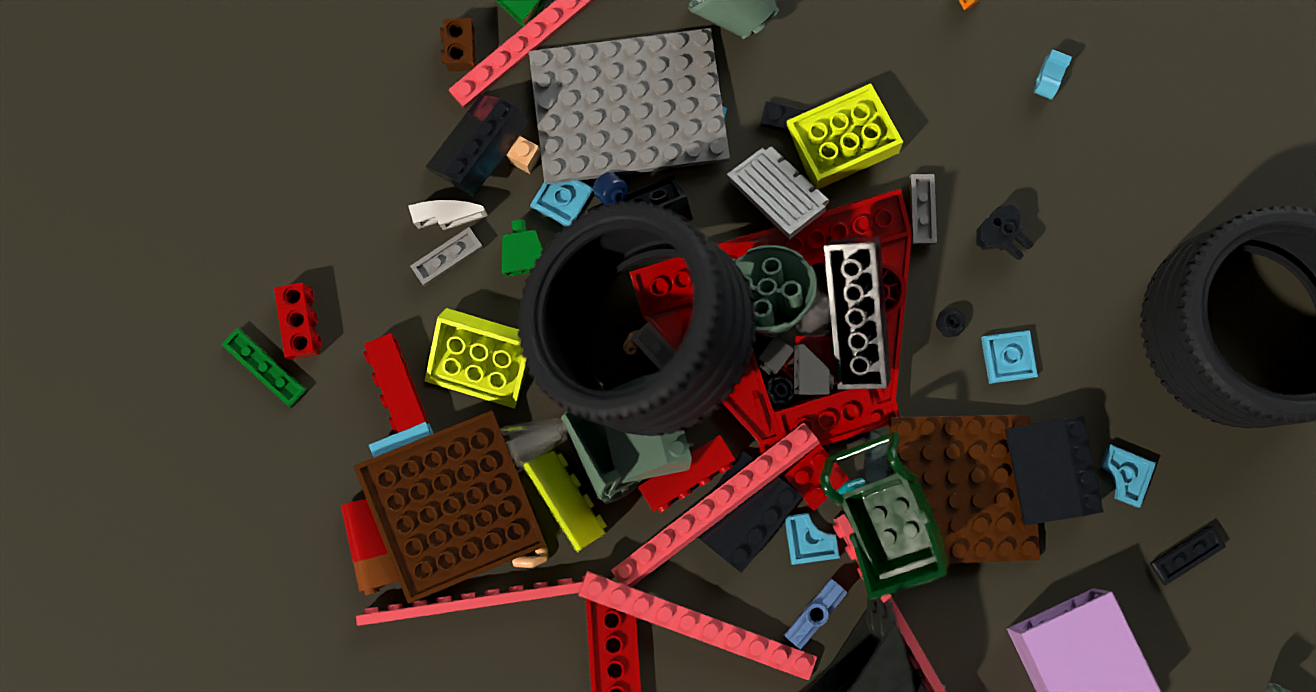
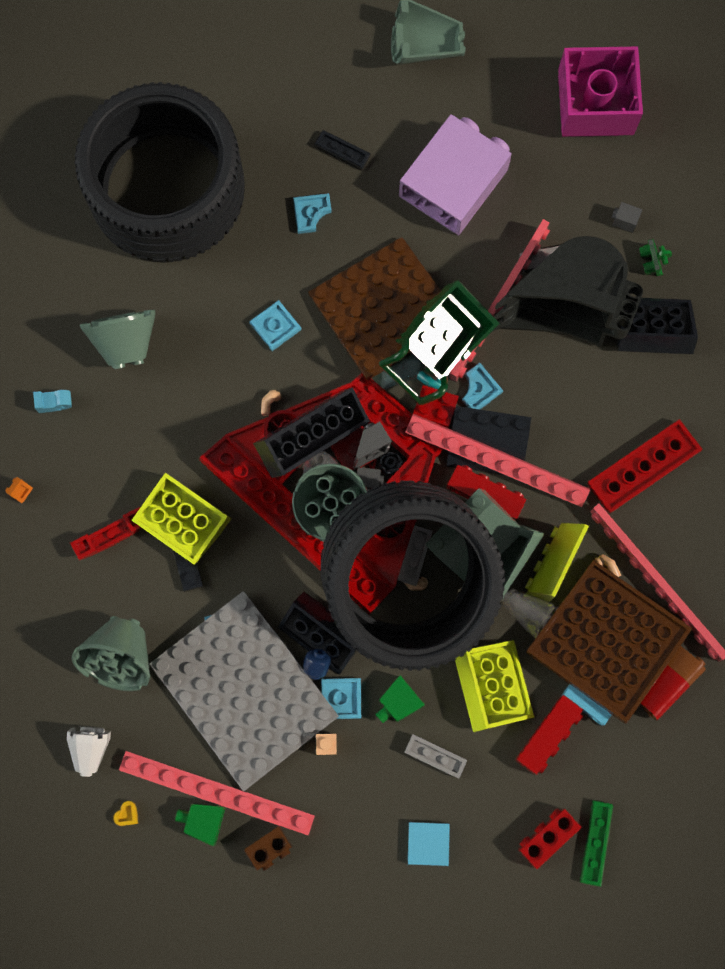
camera: 120 degrees left, 5 degrees down
(368, 201) = (428, 844): none -> medium azure tile
(446, 213) = (403, 775): white slope -> none
(478, 143) = (339, 784): black slope -> none
(697, 625) = (582, 430): coral plate -> none
(778, 191) = (250, 542): white hinge -> none
(826, 600) = (538, 360): medium blue piece -> none
(868, 50) = (106, 537): none -> red slope
(923, 209) = (203, 436): light grey plate -> none
(926, 300) = (267, 400): none -> light nougat arm
(943, 322) = (275, 381): black plate -> none
(1001, 229) = (189, 372): black hinge -> none
(1054, 470) = (338, 257): black slope -> none
(1086, 177) = (121, 337): none -> sand green cone

